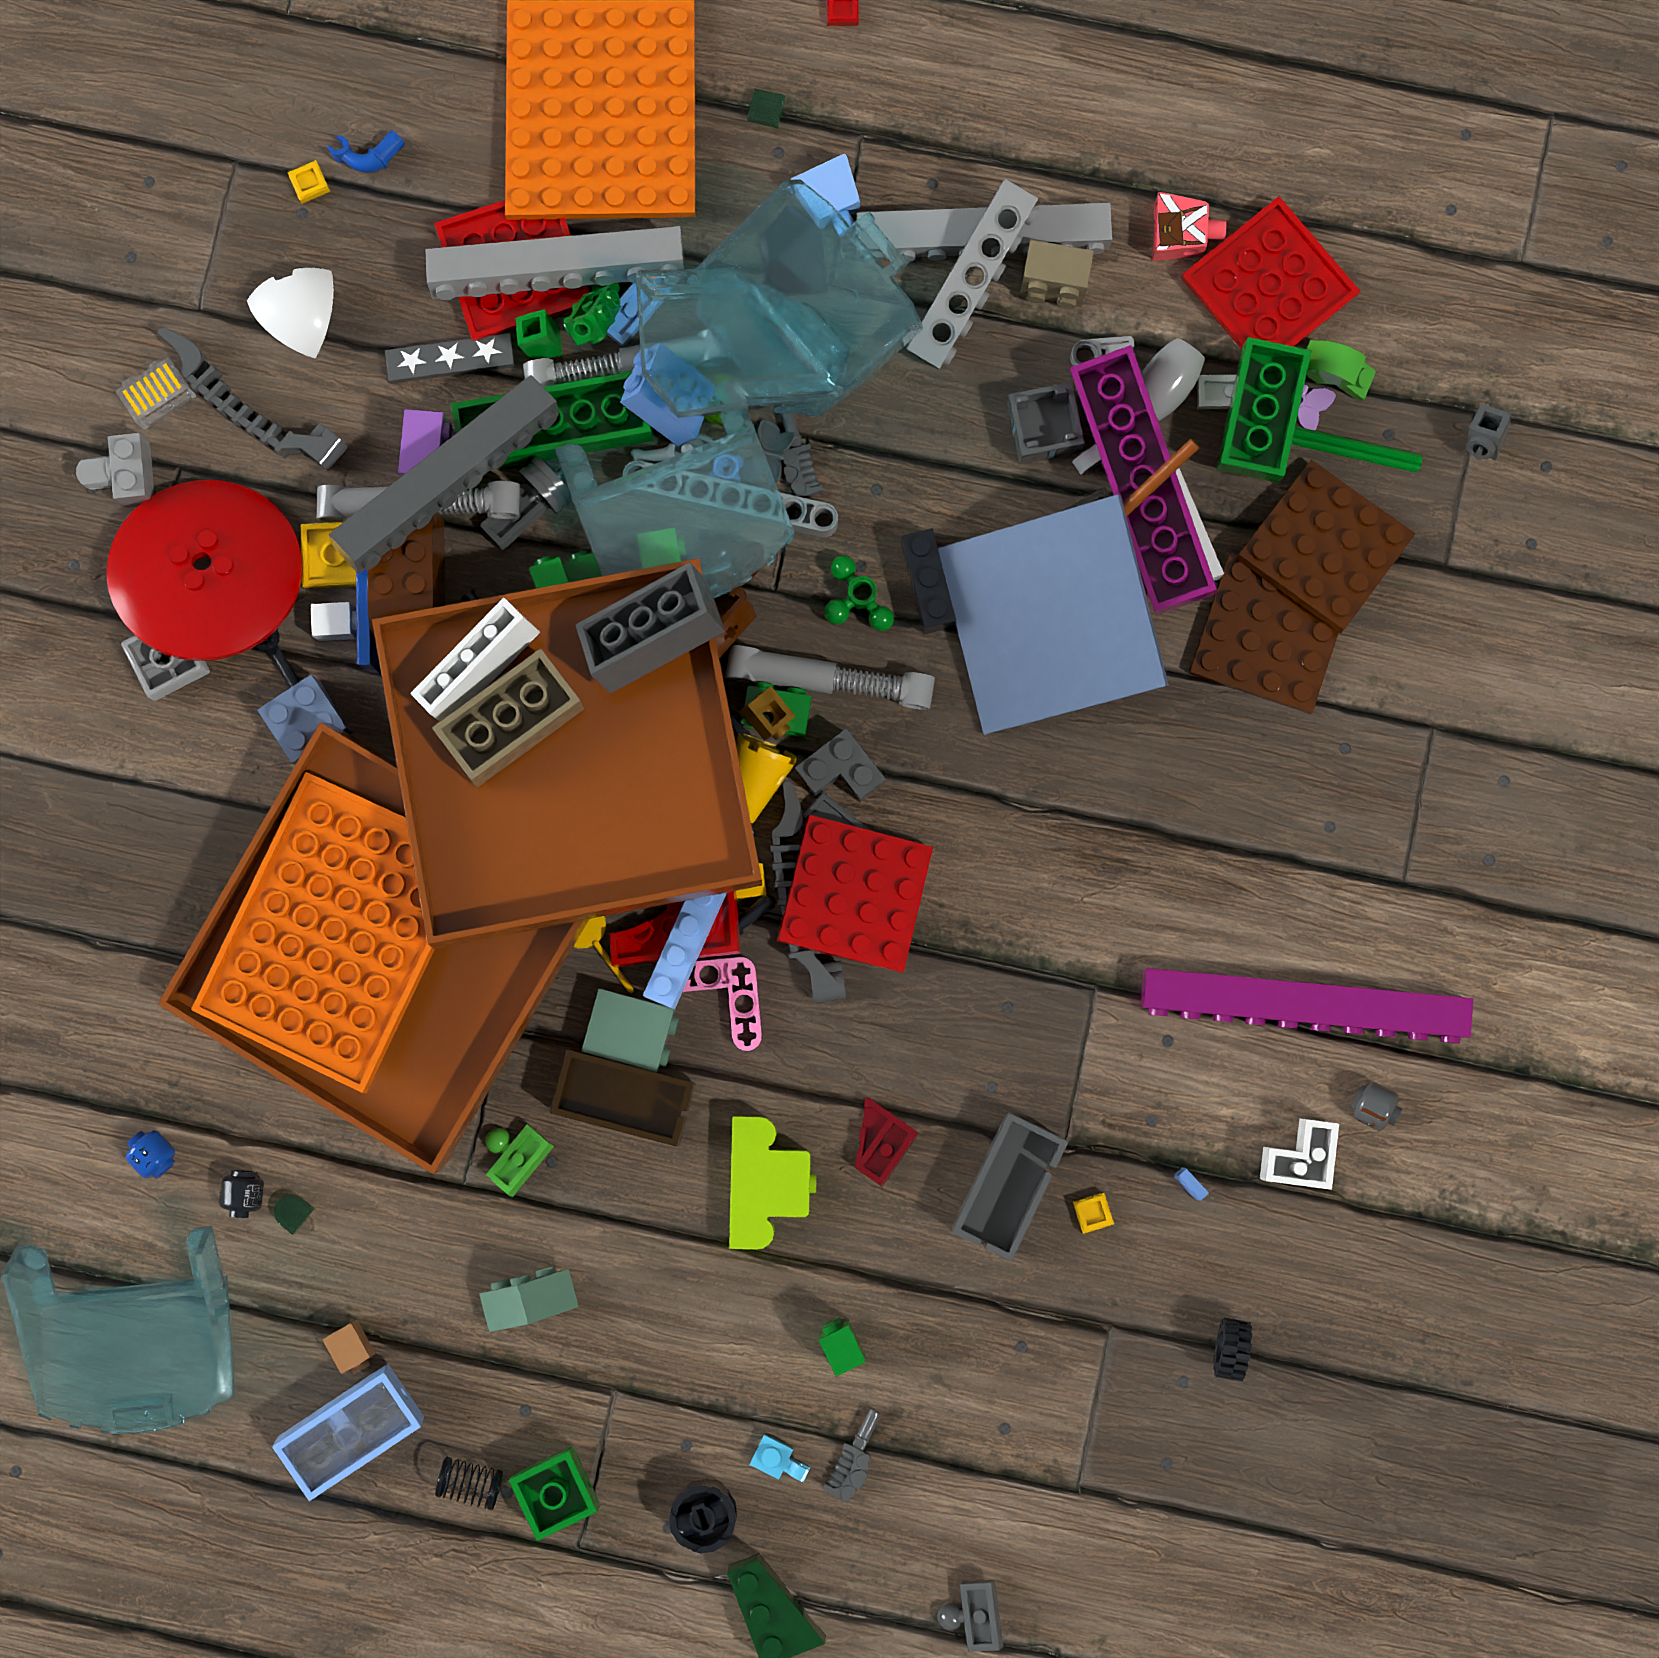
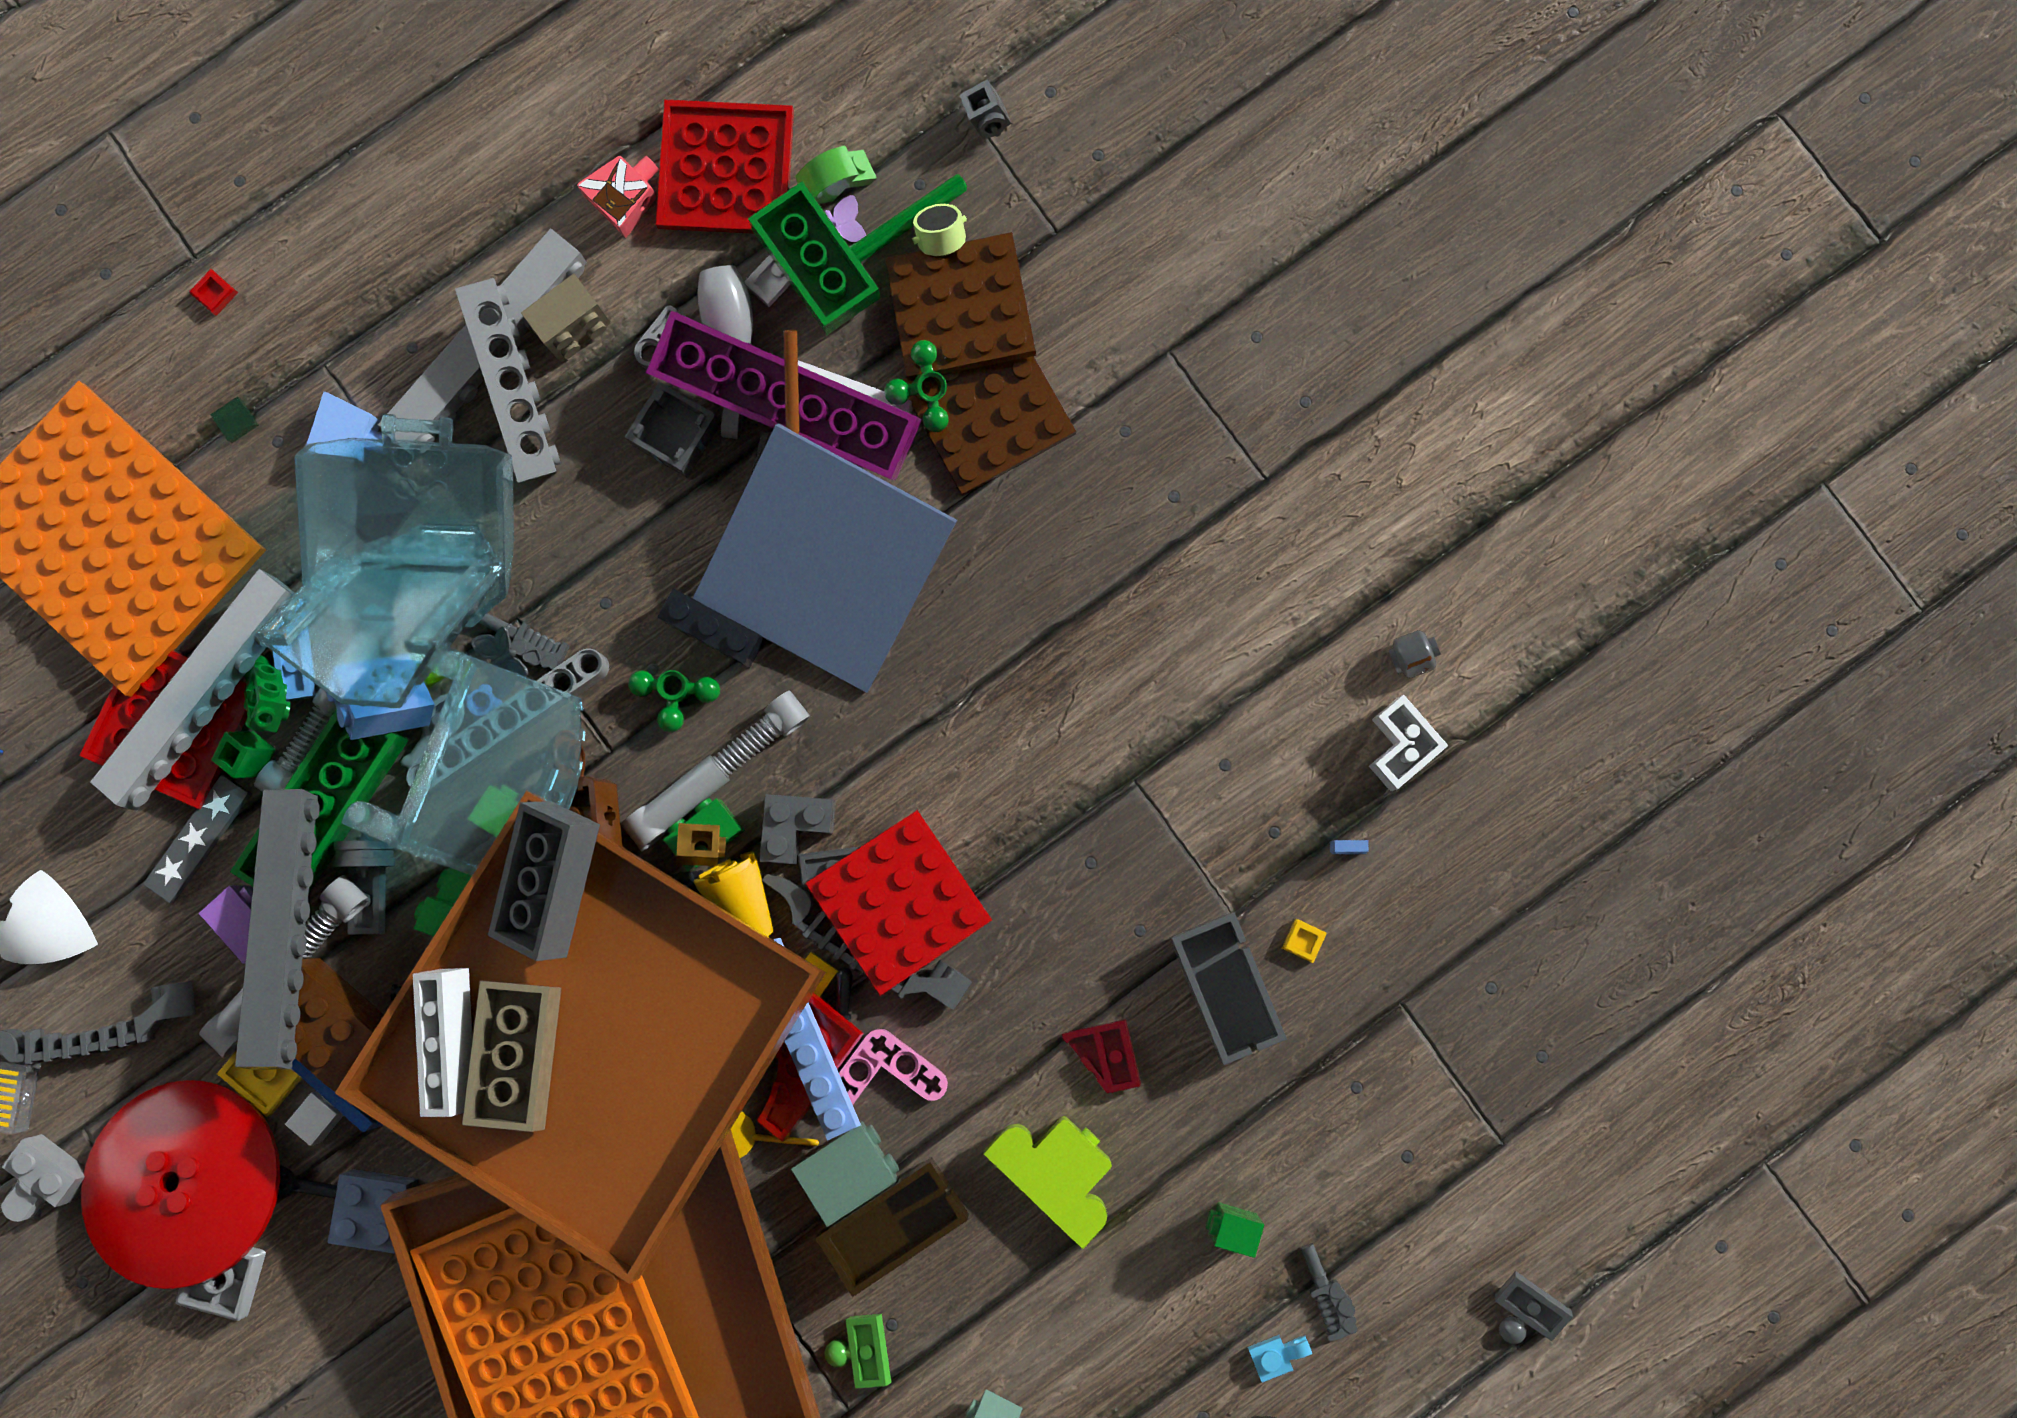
camera: 50 degrees left, 0 degrees up
(1222, 559) = (898, 391): none -> green piece
(1232, 1349) = (1501, 929): black tyre -> none
(1306, 1003) = (1290, 635): magenta brick -> none
(1368, 480) = (939, 229): none -> yellowish green piece

